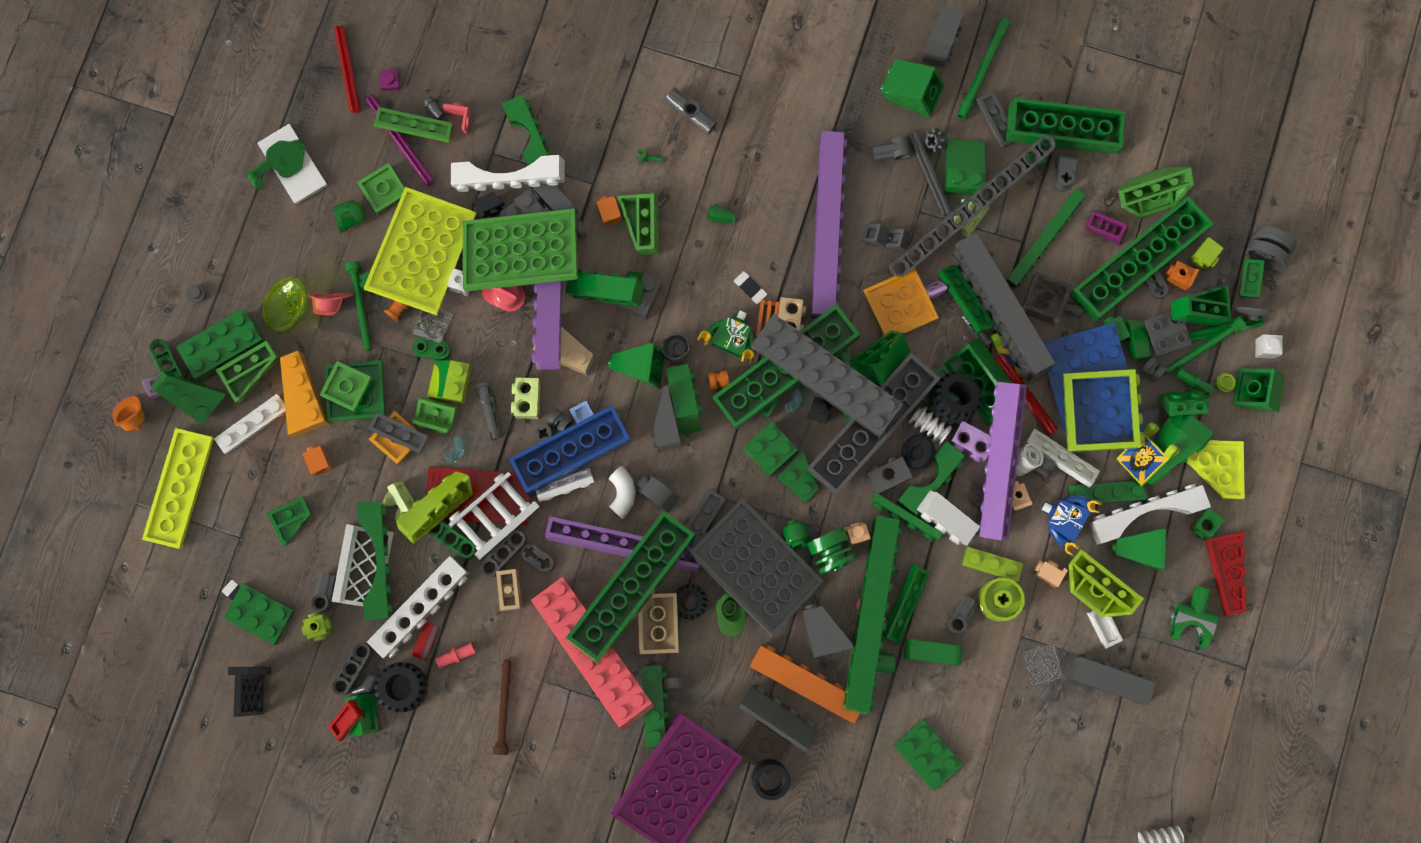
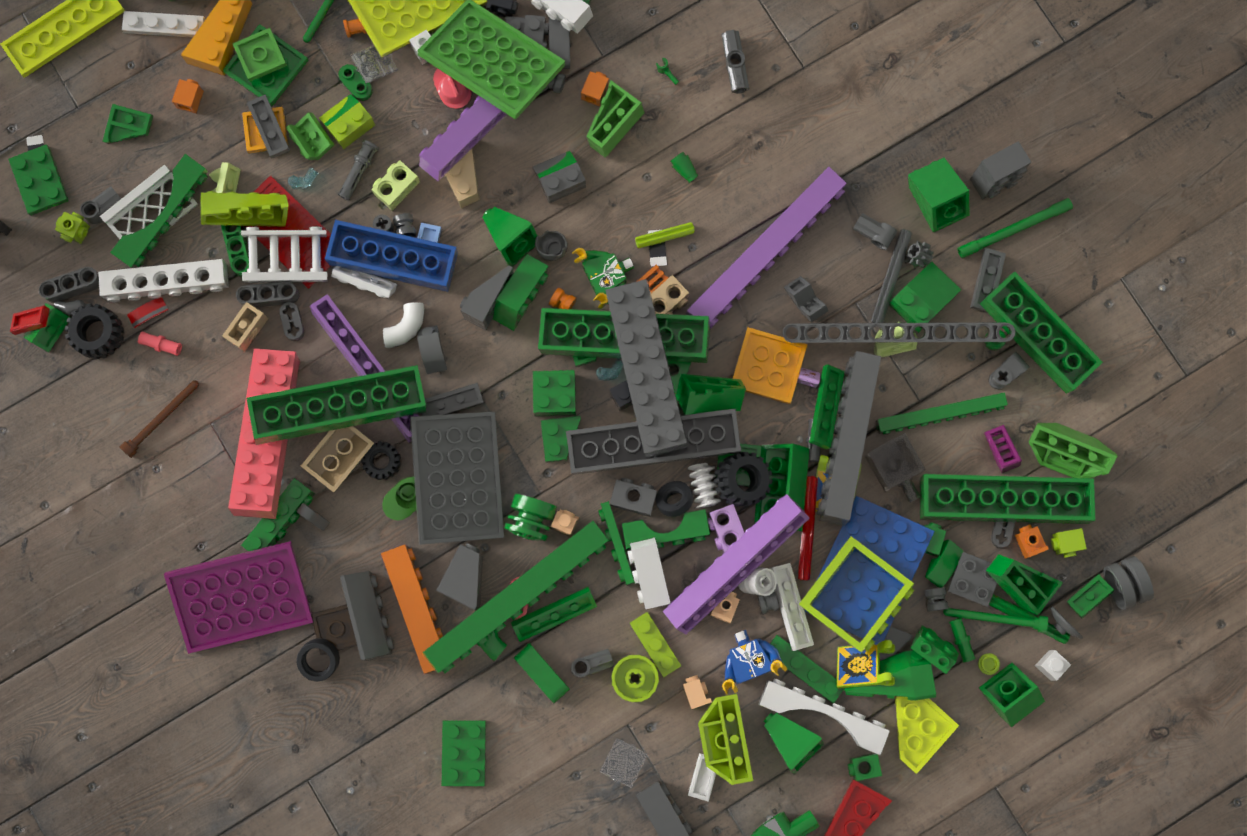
camera: 40 degrees right, 0 degrees up
(606, 288) = (534, 148): green brick -> none
(748, 274) = (664, 235): none -> lime axle
(796, 534) = (514, 480): green head -> none

